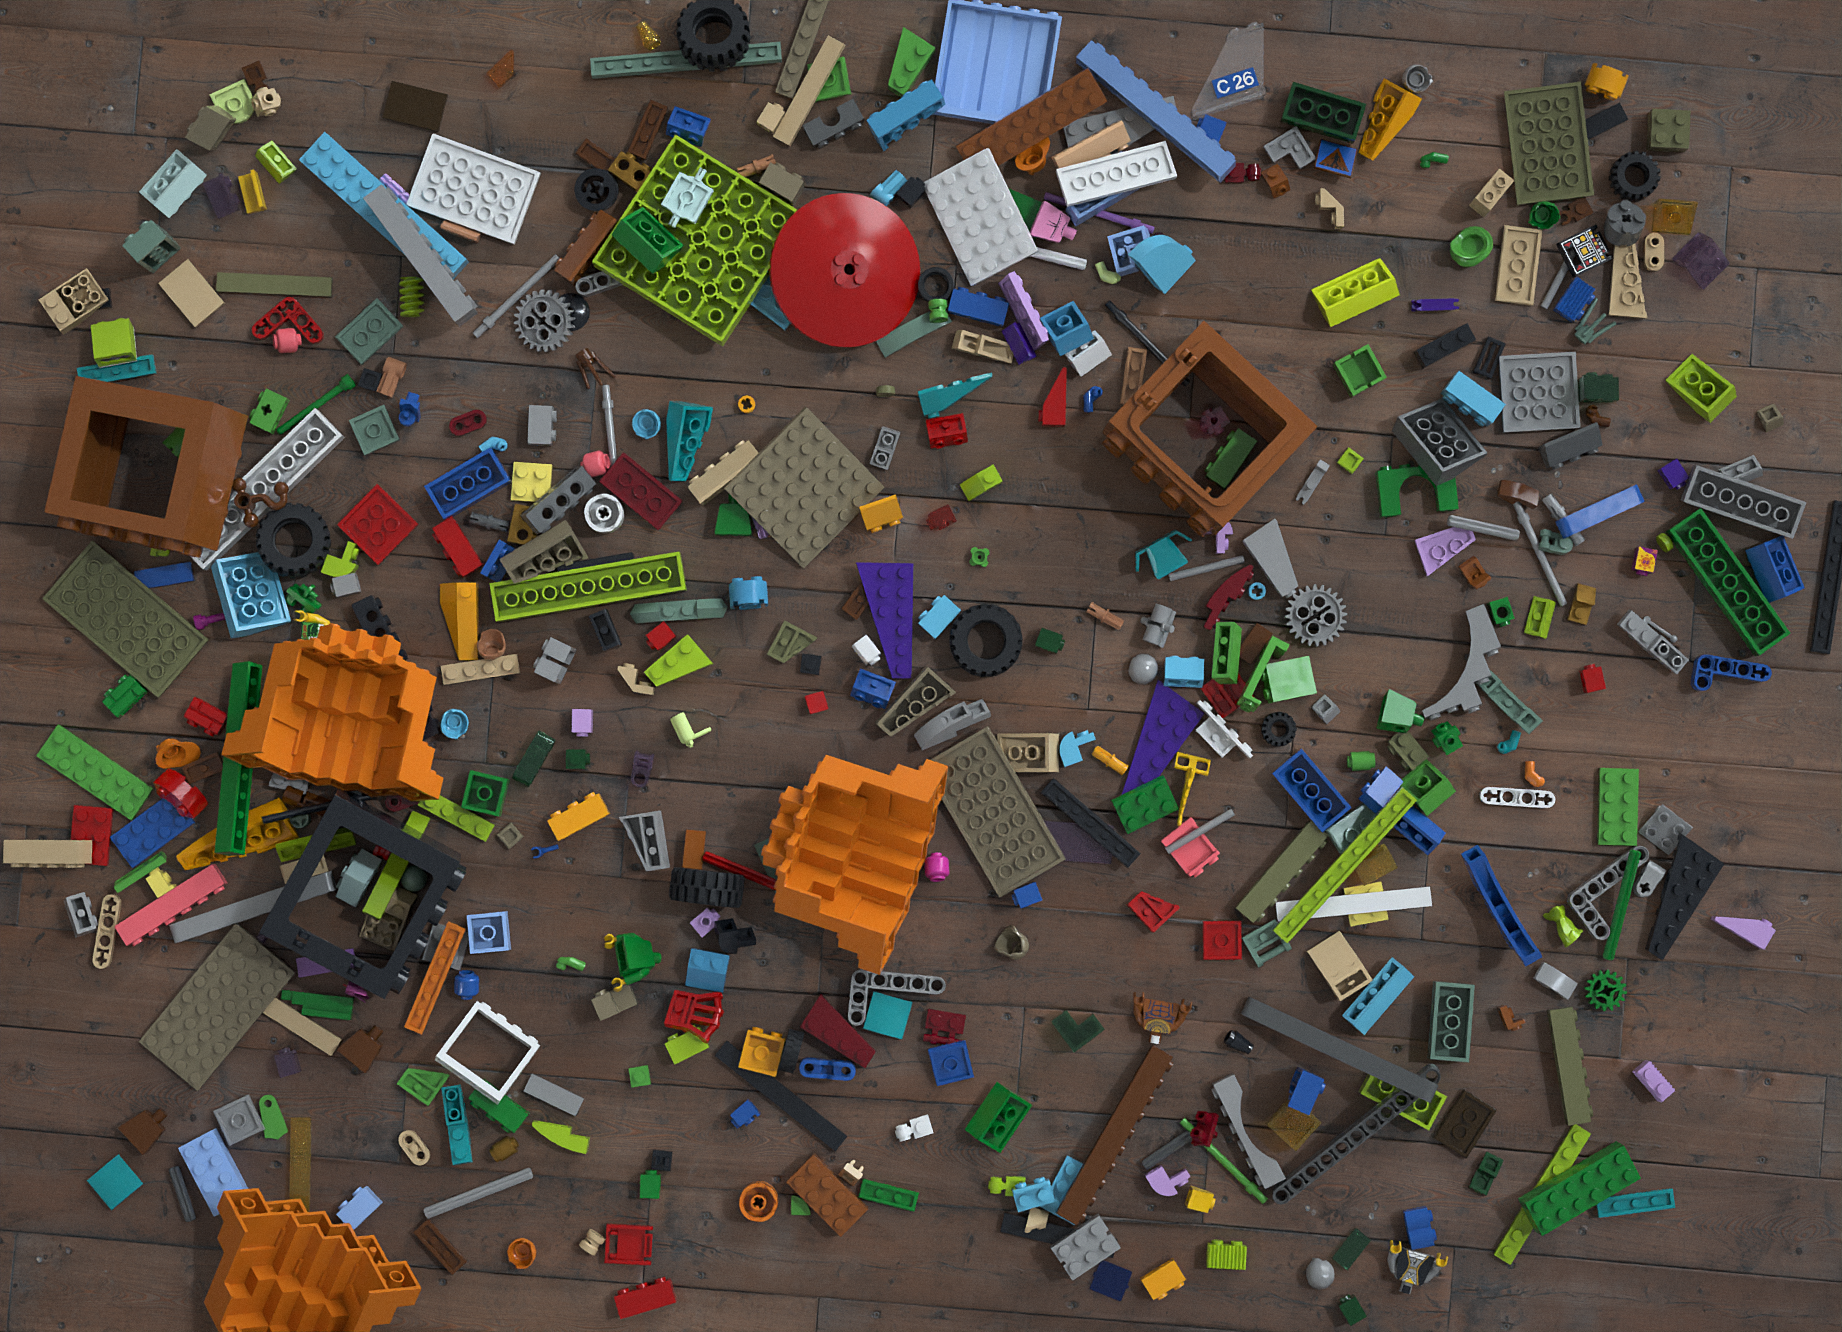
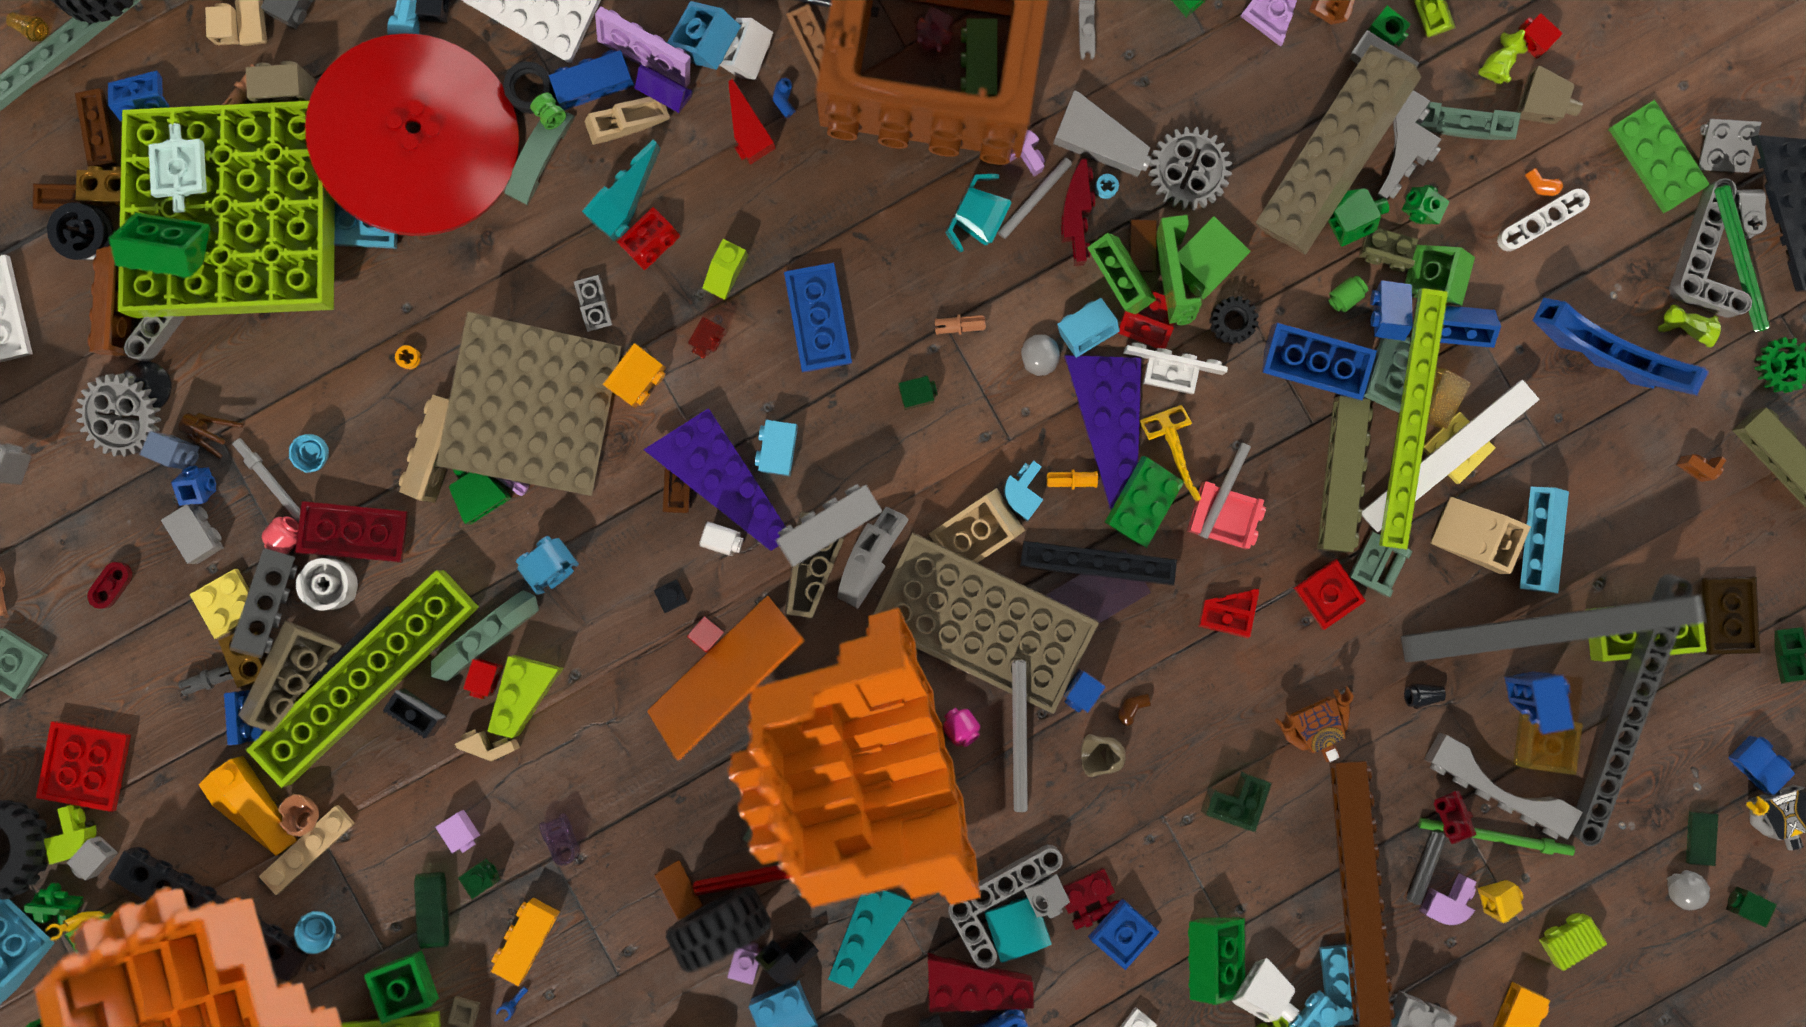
camera: 35 degrees left, 0 degrees up
(409, 409) = (30, 614): blue hips -> none
(457, 547) = (187, 731): red brick -> none
(468, 484) = (151, 654): blue brick -> none
(489, 321) = (60, 457): light grey bar -> none
(495, 443) = (154, 588): medium azure arm -> none
(550, 669) = (369, 795): light grey piece -> none
(563, 366) = (169, 450): none -> sand blue brick
(563, 397) = (194, 485): none -> blue brick
(649, 839) = (620, 914): light grey wedge -> none
(684, 730) = (578, 765): yellowish green piece -> none
(685, 429) = (360, 435): teal wedge -> none
(789, 642) = (631, 587): olive wing -> none
(795, 953) = (868, 930): none -> teal wing
(812, 736) = (724, 677): none -> orange piece
(872, 689) = (757, 577): blue bracket -> none
(885, 391) = (551, 240): olive tile -> none
(919, 1007) = (1047, 896): none -> light grey brick
(939, 686) = (829, 525): none -> light grey brick
(969, 896) = (1019, 735): none -> light grey axle
(983, 553) = (779, 345): bright green plate -> none
(985, 614) = (846, 404): black tyre -> none
(1014, 1158) = (1266, 993): none -> white torso
(1019, 552) = (818, 317): none -> blue plate
(1050, 926) = (1130, 707): none -> reddish brown arm
(1158, 625) = (1025, 294): light grey pin -> none
(1325, 709) = (1269, 264): light grey slope -> none
(1412, 667) = (1339, 148): none -> dark tan brick
(1451, 1021) = (1643, 513): sand green brick -> none
(1511, 744) = (1497, 166): teal arm -> none
(1555, 980) = (1725, 391): light grey slope -> none
(1557, 679) = (1500, 62): none -> lime animal
(1571, 722) = (1547, 97): none -> dark tan torso

